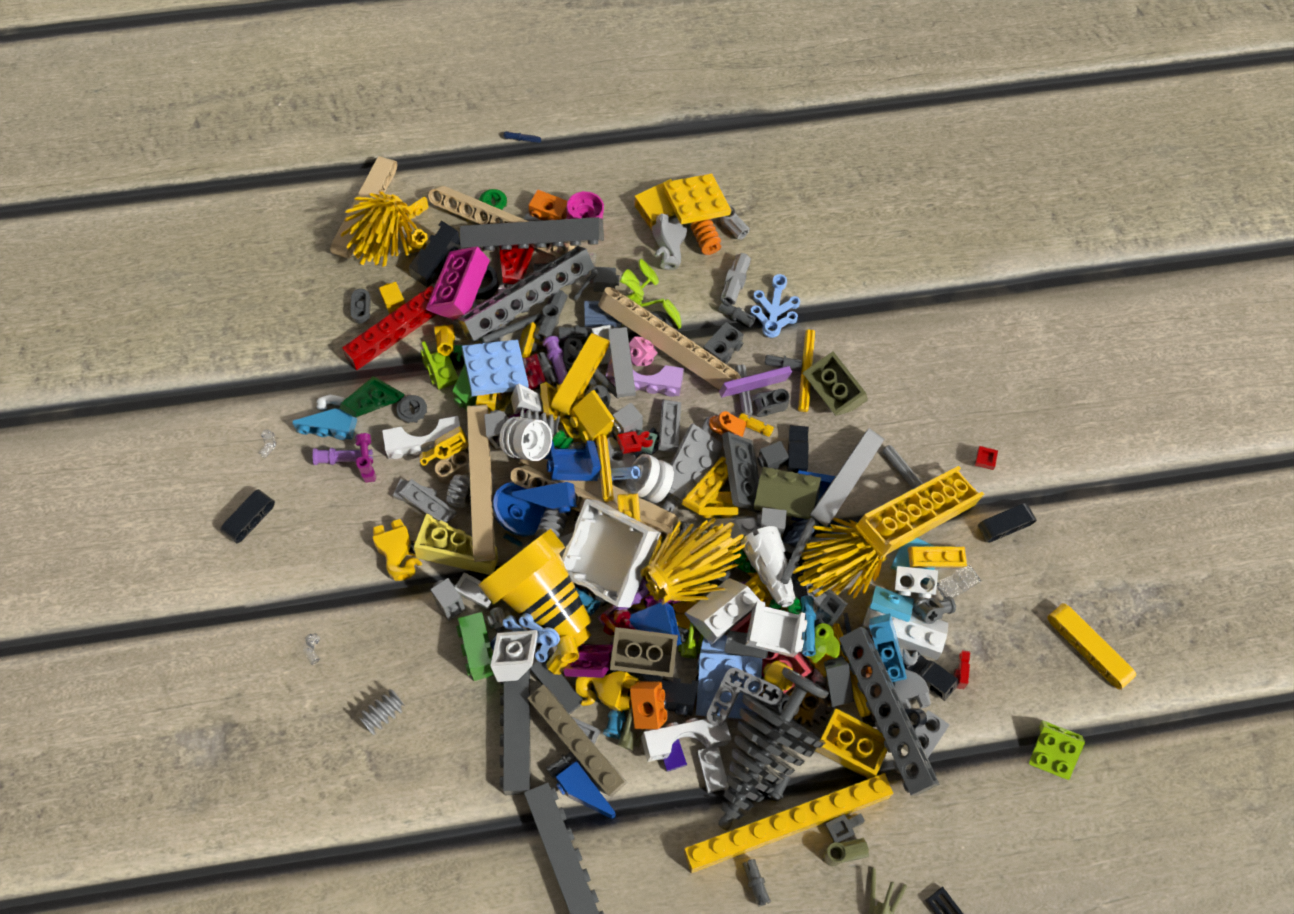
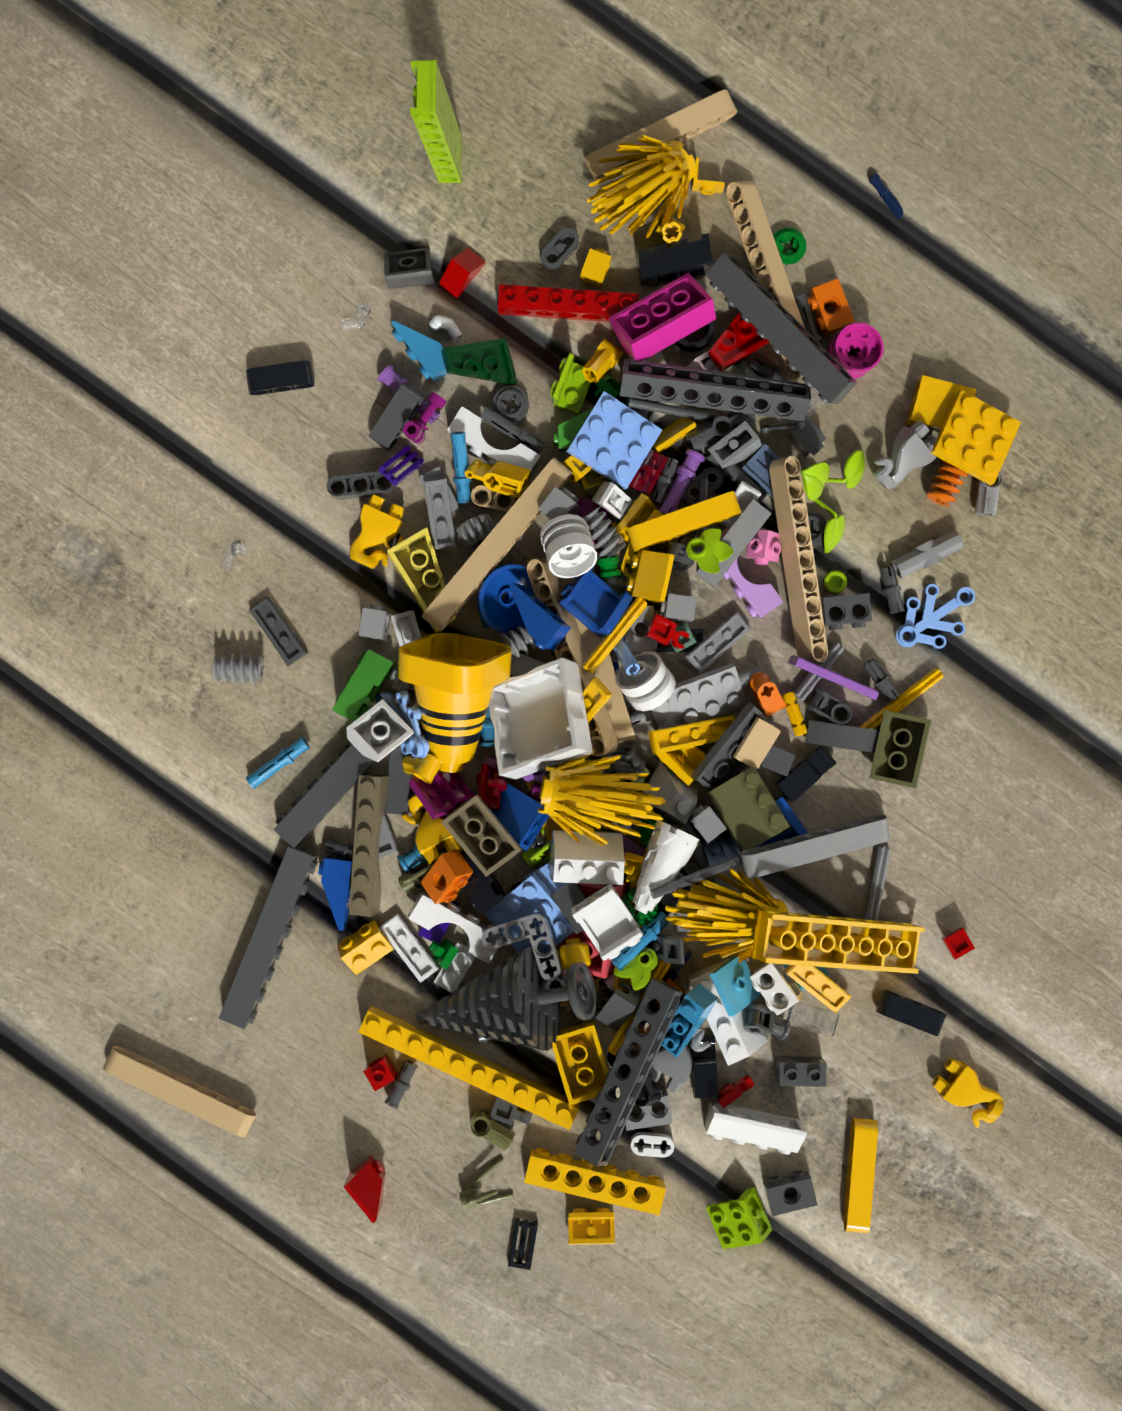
camera: 45 degrees right, 25 degrees up
(223, 277) = (436, 122): none -> lime tile
(277, 390) = (408, 268): none -> dark grey slope
(311, 367) = (461, 272): none -> red slope
(346, 472) = (395, 416): none -> dark grey beam
(361, 522) = (350, 482): none -> dark grey beam
(366, 502) = (409, 457): none -> dark purple tile
(387, 668) = (278, 631): none -> dark grey tile
(421, 470) = (460, 465): none -> dark azure pin
(423, 420) = (512, 430): none -> dark grey pin
(466, 742) = (285, 756): none -> dark azure pin
(569, 312) = (736, 446): none -> light grey slope
(613, 375) = (712, 550): none -> lime plate
(640, 814) = (364, 947): none -> yellow bracket
(669, 786) = (409, 947): none -> white tile
(695, 764) = (444, 952): none -> green tile
(701, 337) = (835, 582): none -> lime tile
(735, 887) = (380, 1072): none -> red brick
(751, 454) = (757, 743): none -> tan slope
(795, 409) = (841, 736): none -> dark grey slope
(949, 753) = (651, 1150): none -> white beam
(975, 849) = (591, 1227): none -> yellow bracket
(986, 617) = (801, 1071): none -> dark grey brick
(992, 791) = (603, 1191): none -> yellow brick
(1000, 678) = (754, 1127): none -> white slope
(1073, 691) = (801, 1198): none -> dark grey brick
(1086, 534) = (965, 1089): none -> yellow hips

